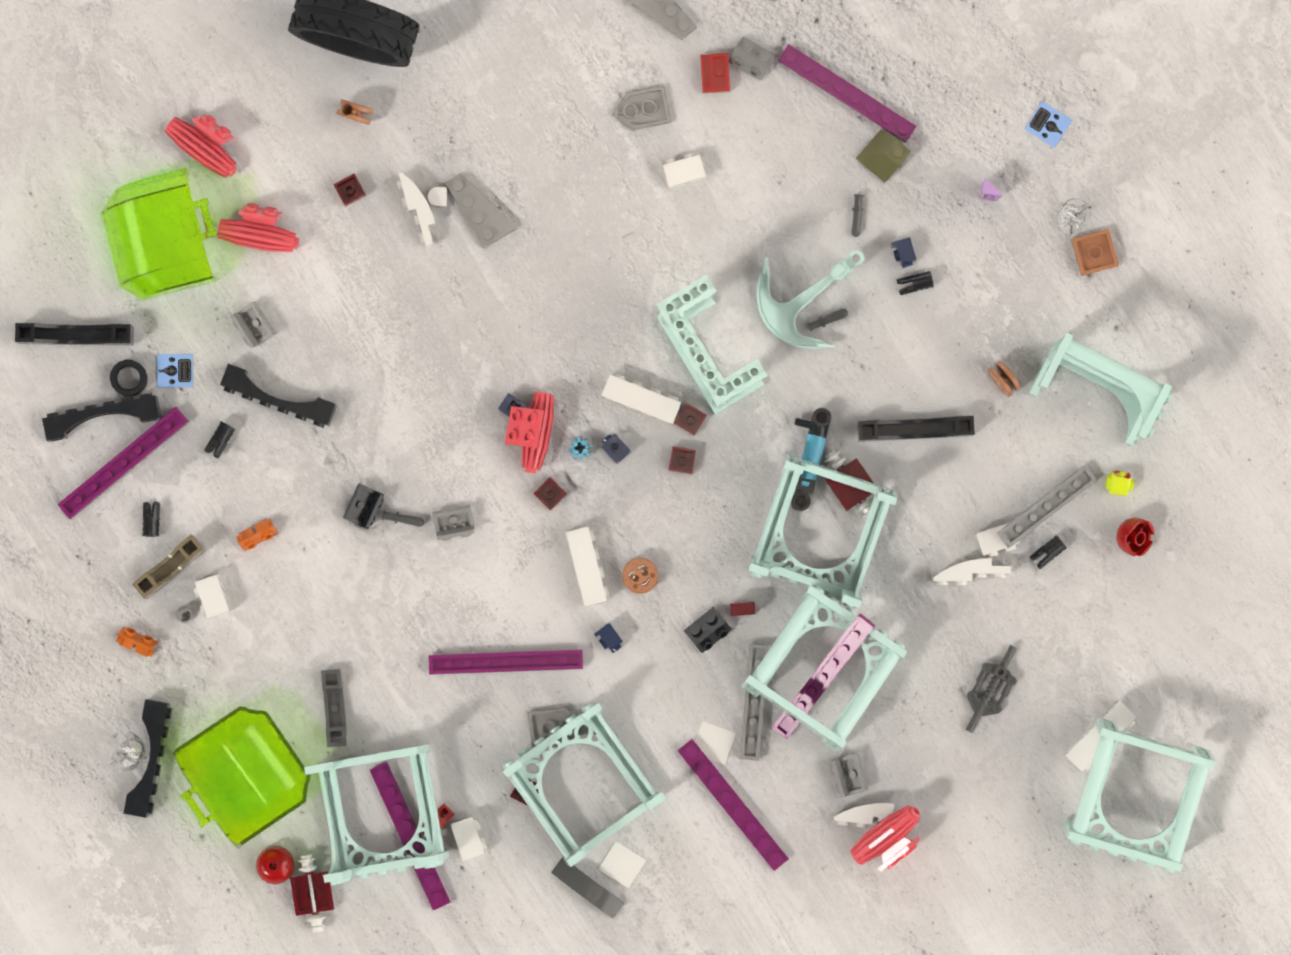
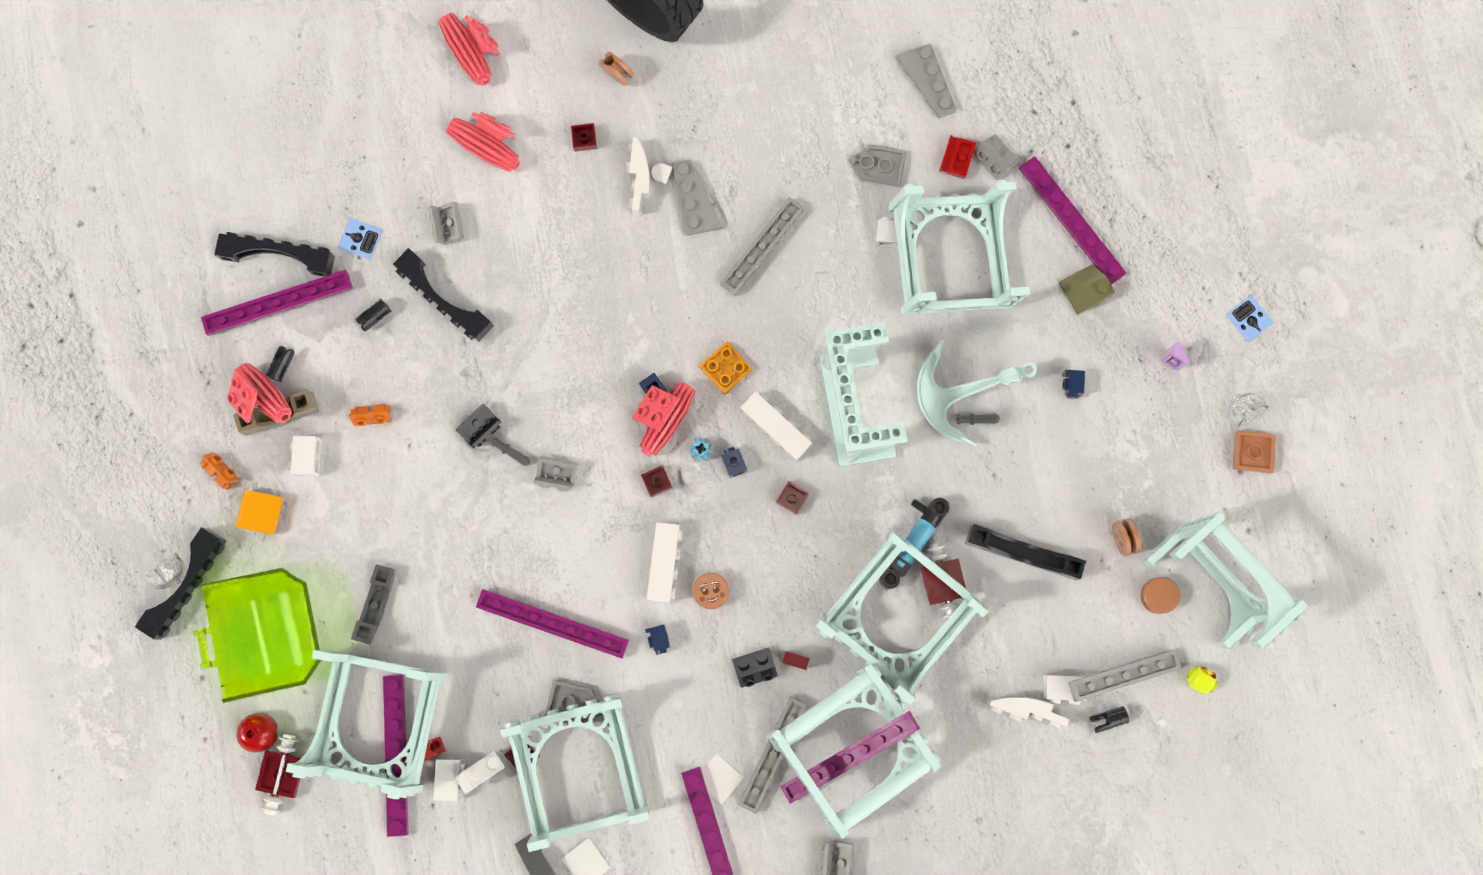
camera: 20 degrees right, 5 degrees down
(74, 334) = (303, 179): black arch -> none
(114, 376) = (304, 218): black tyre -> none
(142, 554) = (253, 389): none -> coral plate
(158, 235) = (392, 112): clear neon green windscreen -> none
(184, 619) = (269, 465): light grey hinge -> none
(191, 665) = (259, 512): none -> light orange tile
(495, 820) = (479, 772): none -> white brick
(562, 231) = (762, 246): none -> light grey plate
(572, 361) = (725, 367): none -> light orange tile
(690, 419) = (814, 462): piece -> none
(767, 113) = (992, 210): none -> light aqua arch
(856, 224) = (1036, 344): dark grey piece -> none
(919, 281) = (1077, 416): black hinge -> none
(981, 707) = (990, 846): dark grey bar -> none
(1054, 420) = (1160, 595): none -> nougat head
(1135, 536) = (1200, 737): red cylinder -> none

